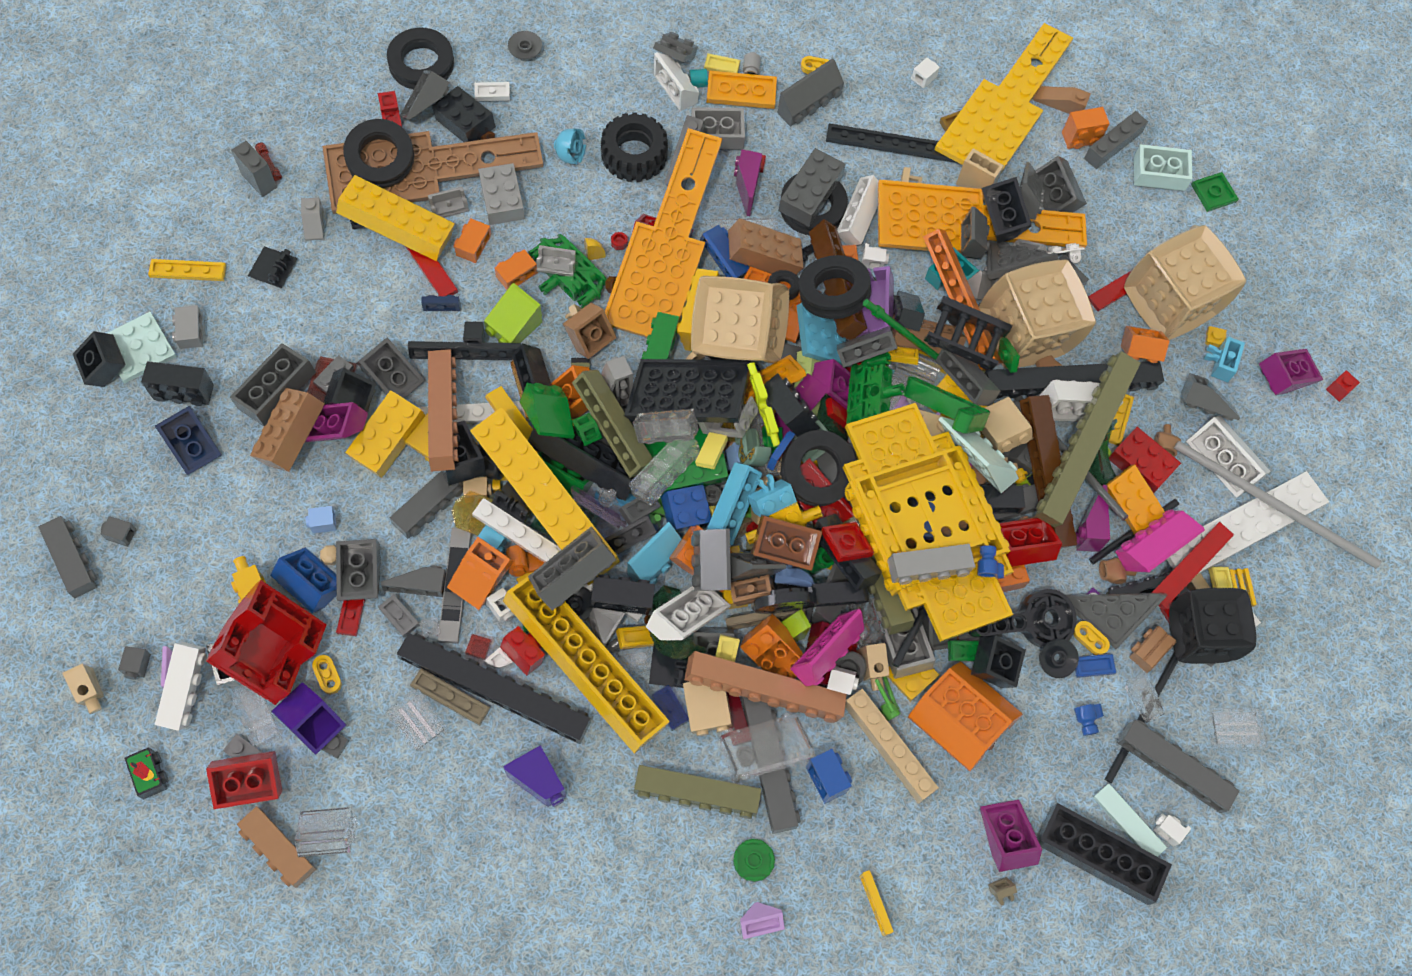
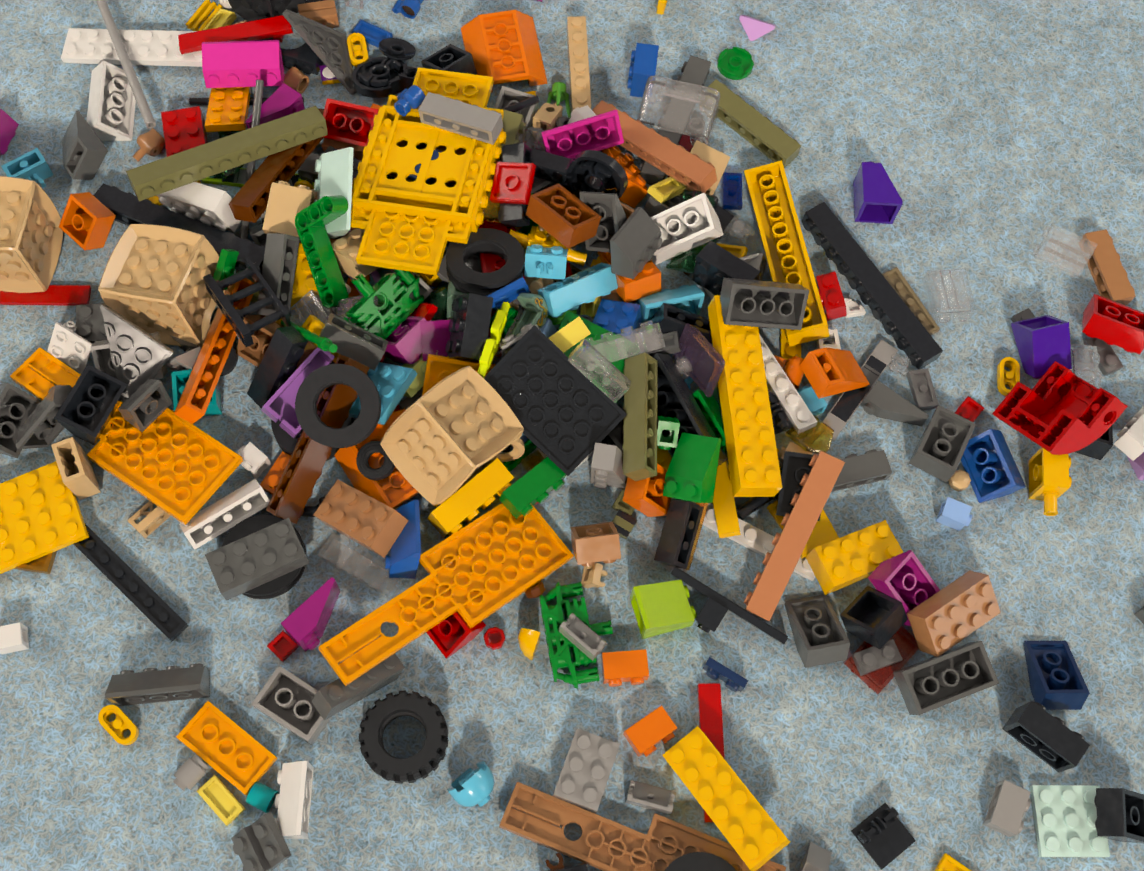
camera: 145 degrees left, 0 degrees up
(478, 646) = (865, 325): clear red plate -> none

